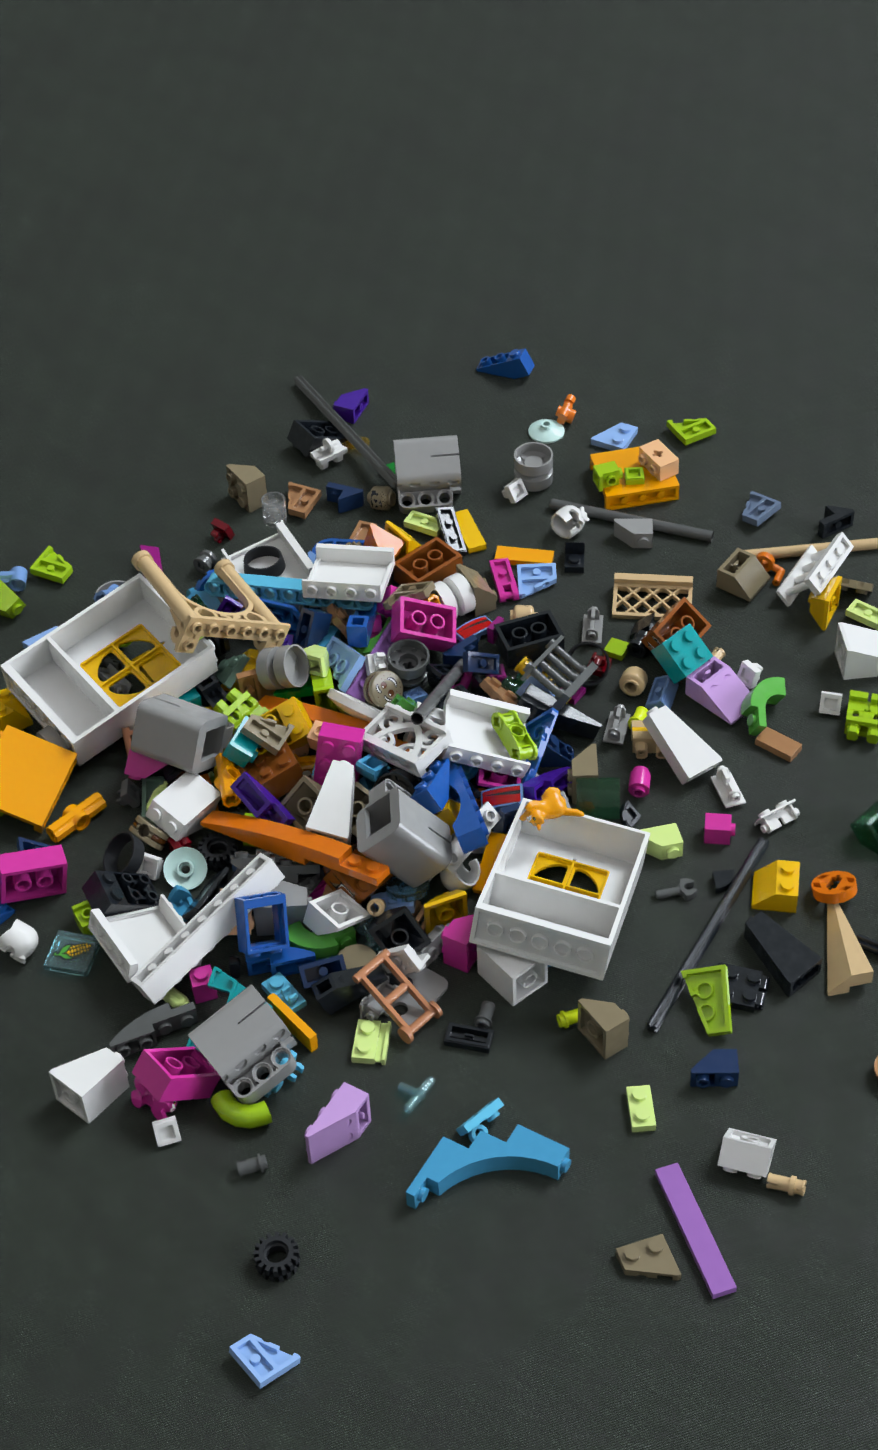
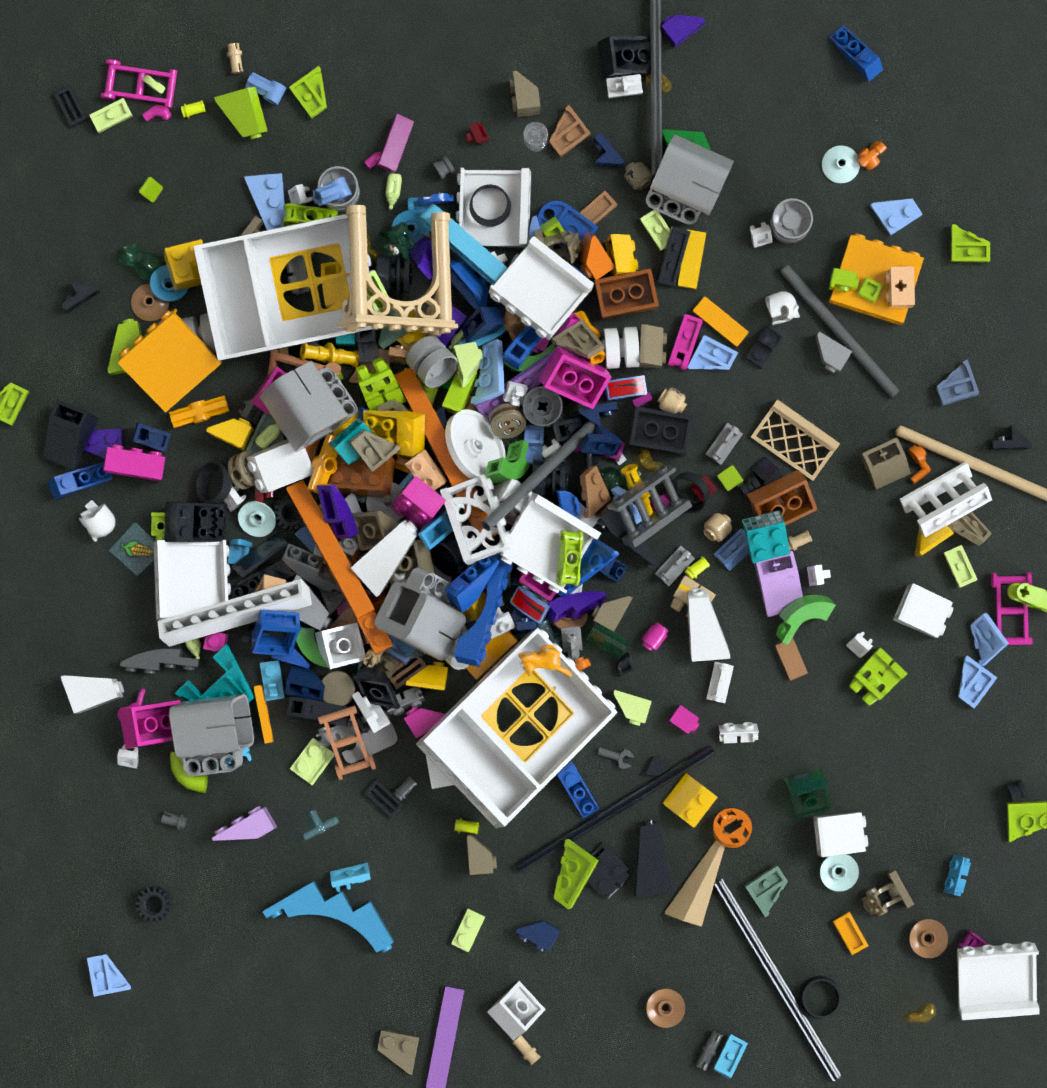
camera: 25 degrees right, 40 degrees up
(116, 810) = (233, 432): none -> yellow slope
(655, 929) = (577, 790): none -> blue slope

